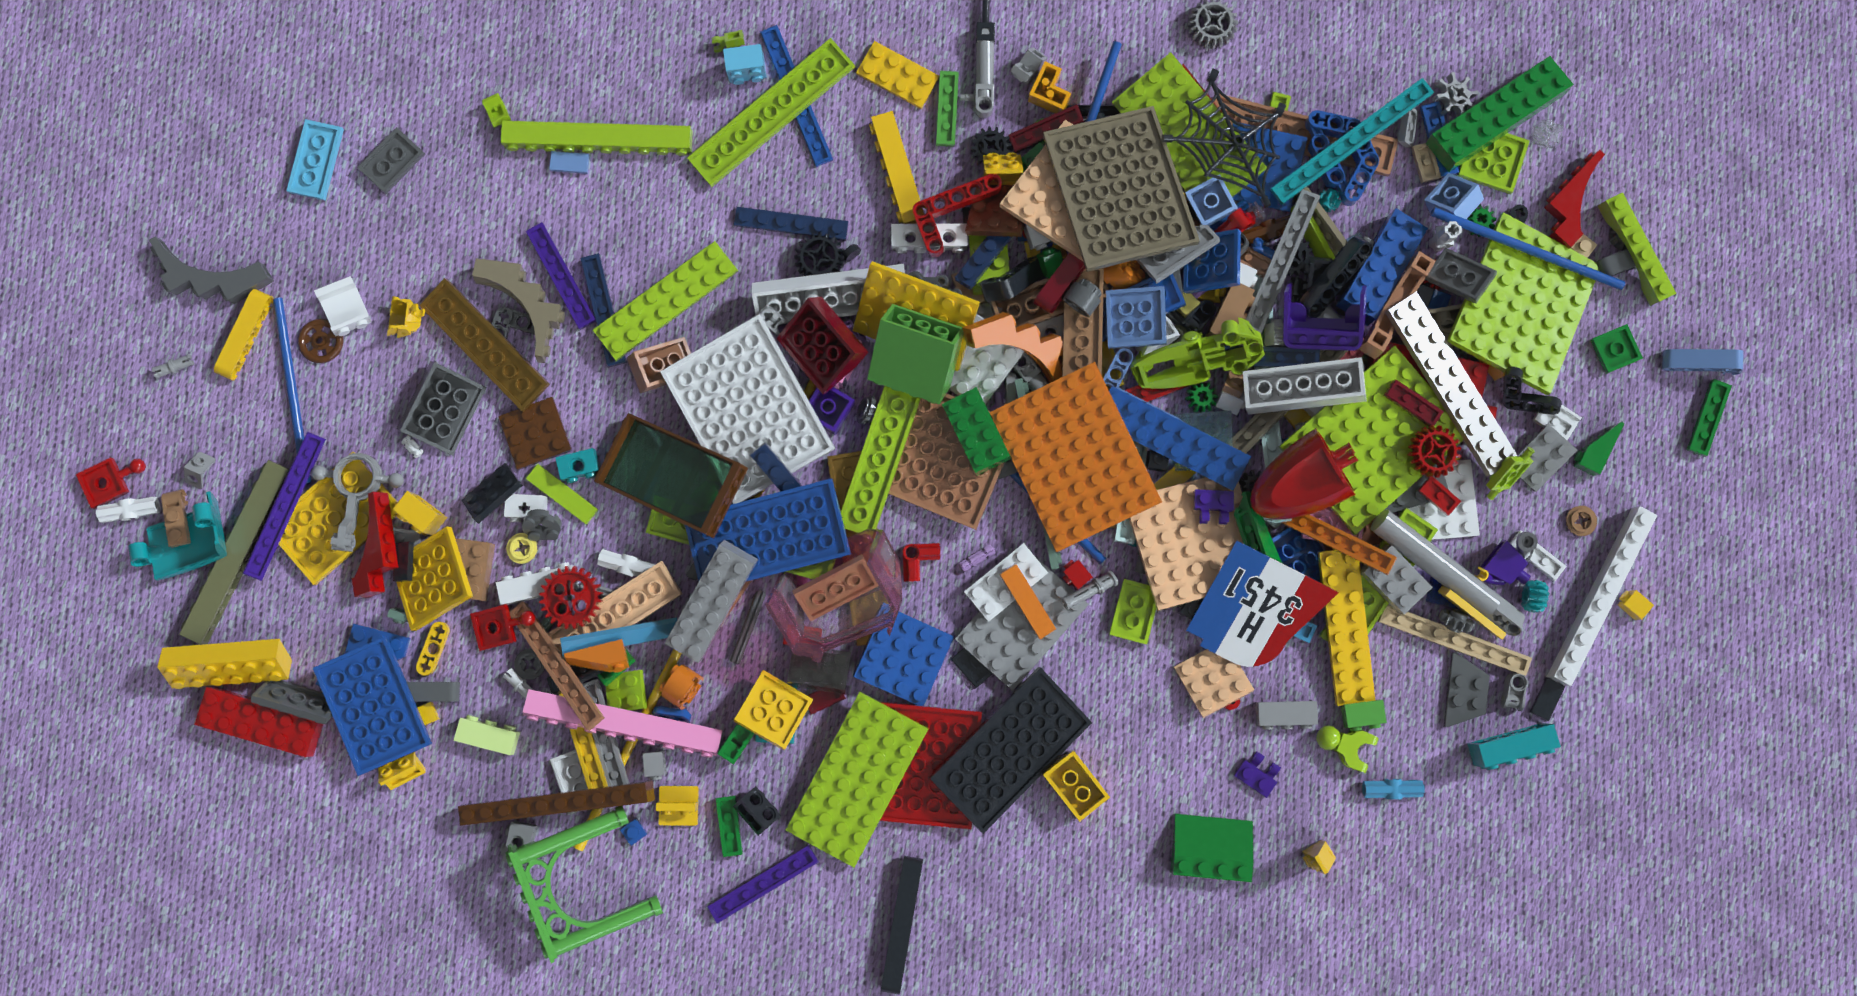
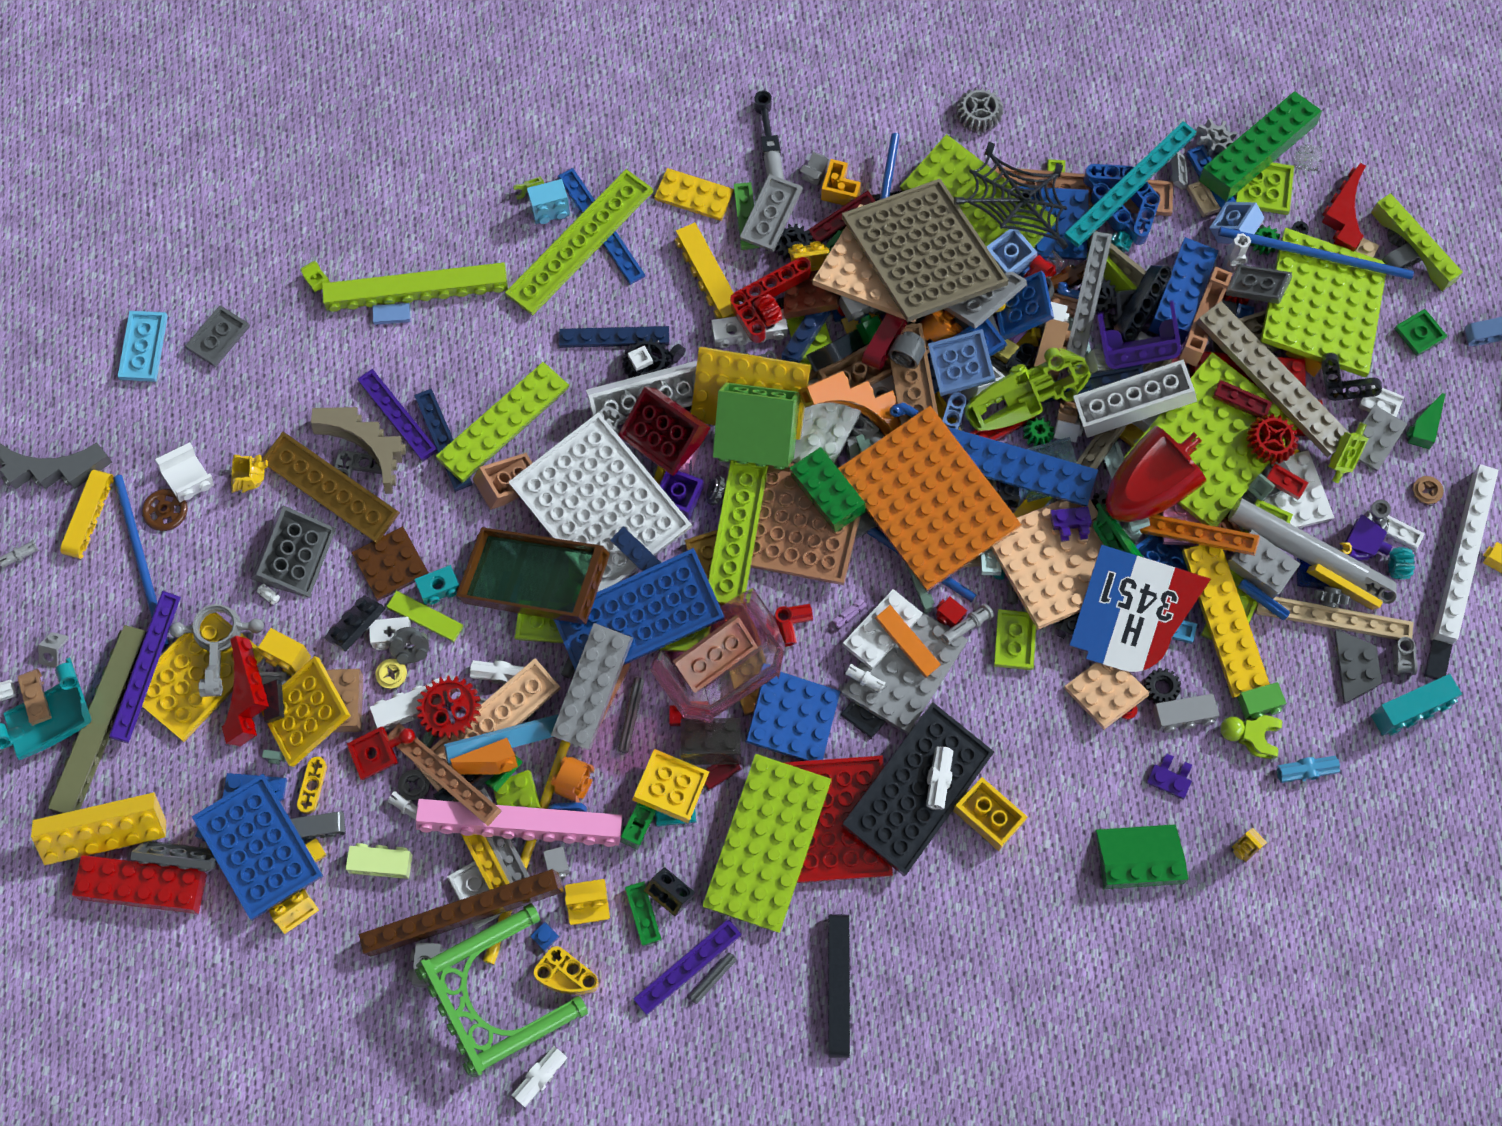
camera: 10 degrees left, 15 degrees down
(610, 964) = (539, 1076): none -> white piece
(641, 874) = (559, 978): none -> yellow beam
(785, 897) = (712, 978): none -> dark grey axle
(812, 257) = (640, 358): none -> white plate
(949, 226) = (768, 310): none -> red gear
(972, 113) = (771, 213): none -> light grey plate
(979, 631) = (865, 678): none -> white pin
(1032, 745) = (939, 778): none -> white piece
(1067, 359) = (903, 409): none -> blue arm
(1280, 683) = (1164, 675): none -> black tyre
(1388, 613) = (1264, 599): none -> blue axle
(1412, 498) = (1261, 487): none -> sand green plate

